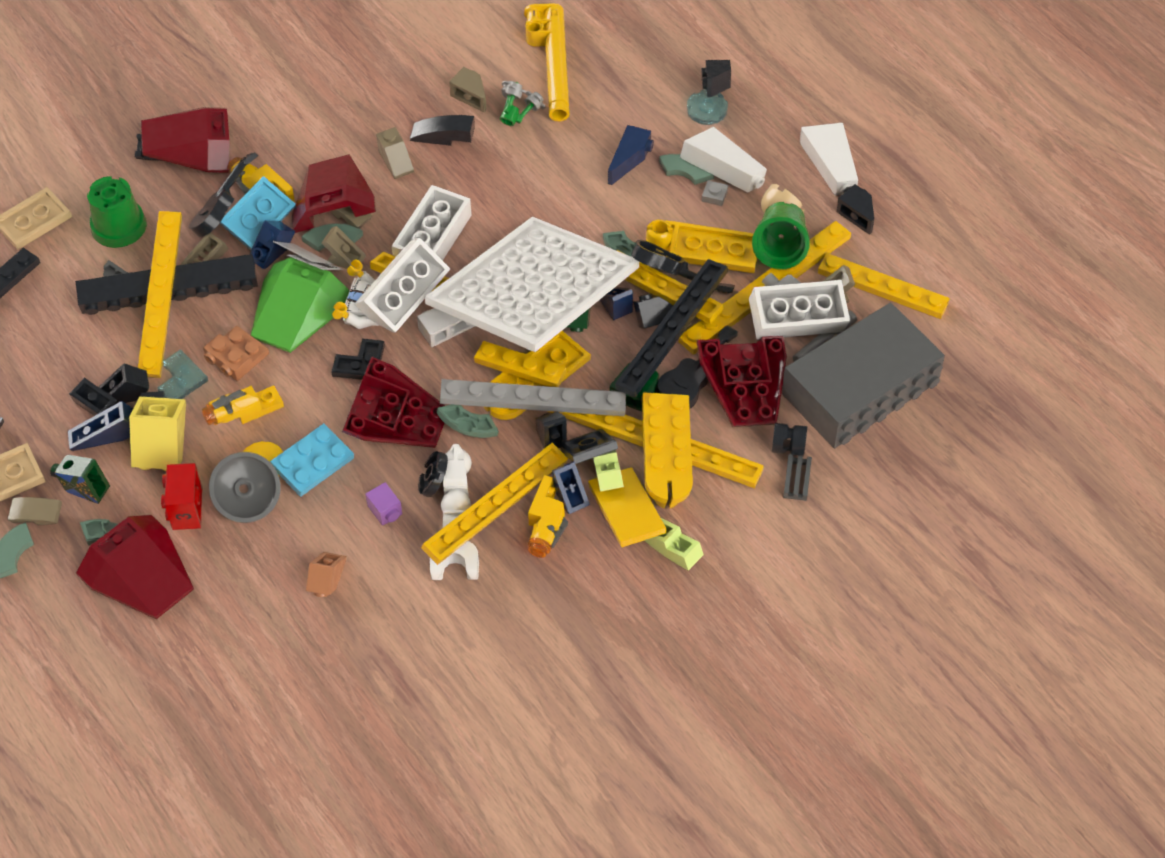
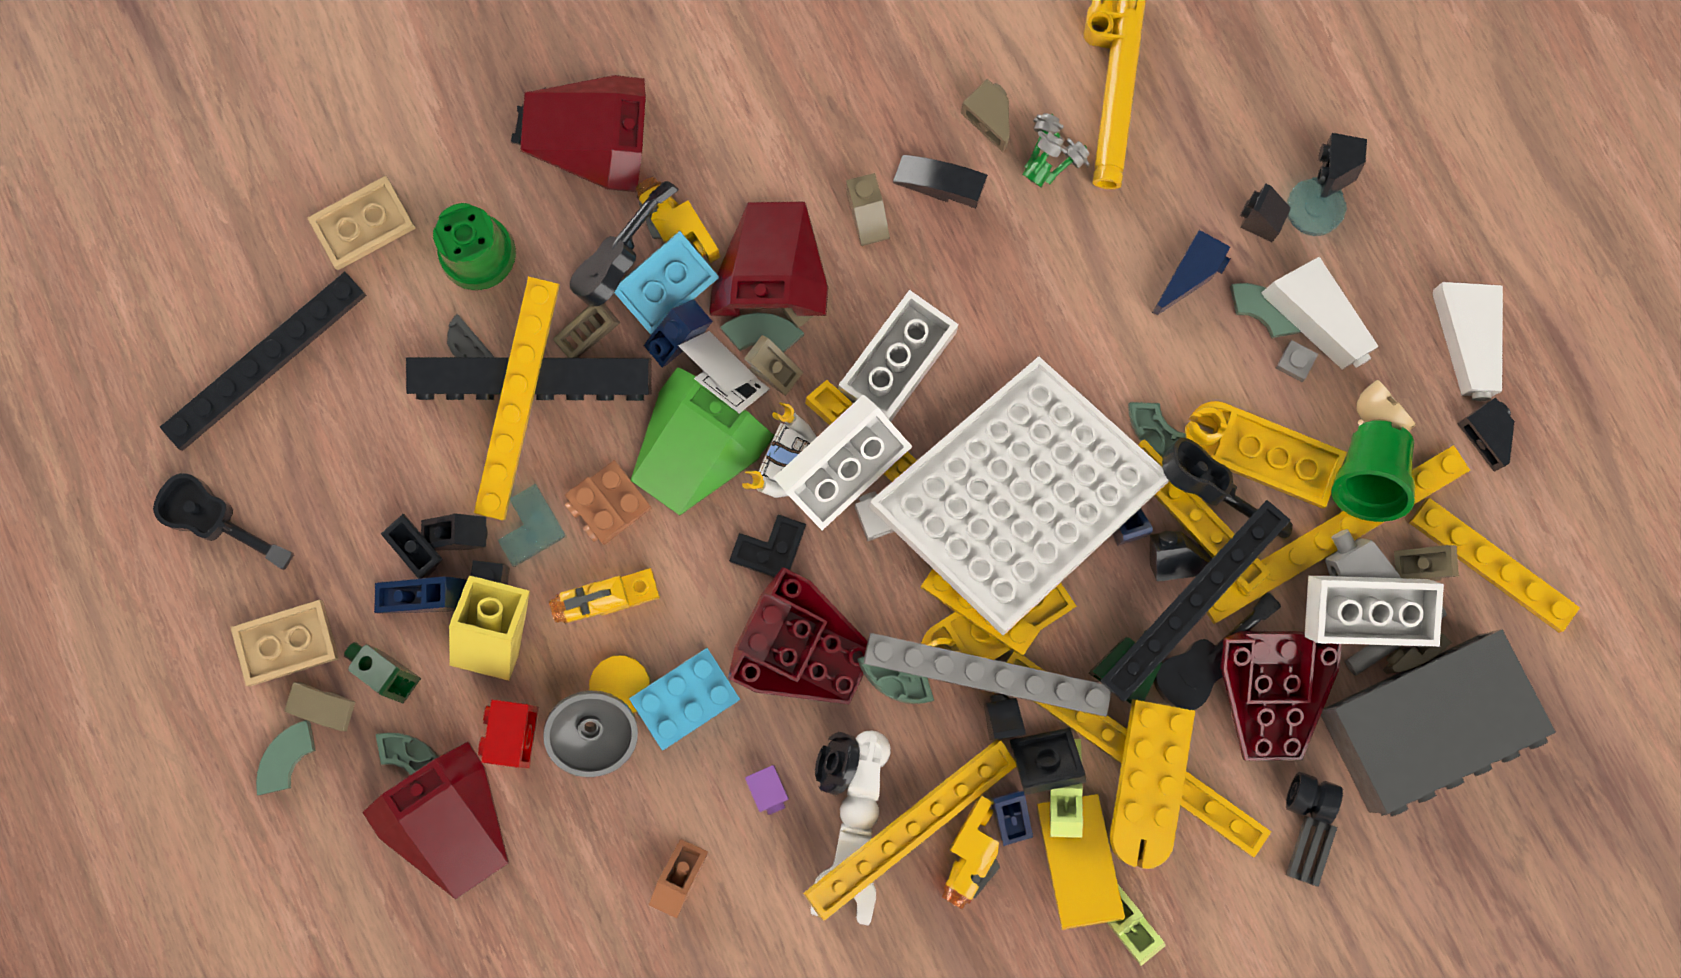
camera: 10 degrees right, 25 degrees up
(671, 110) = (1265, 213): none -> black slope

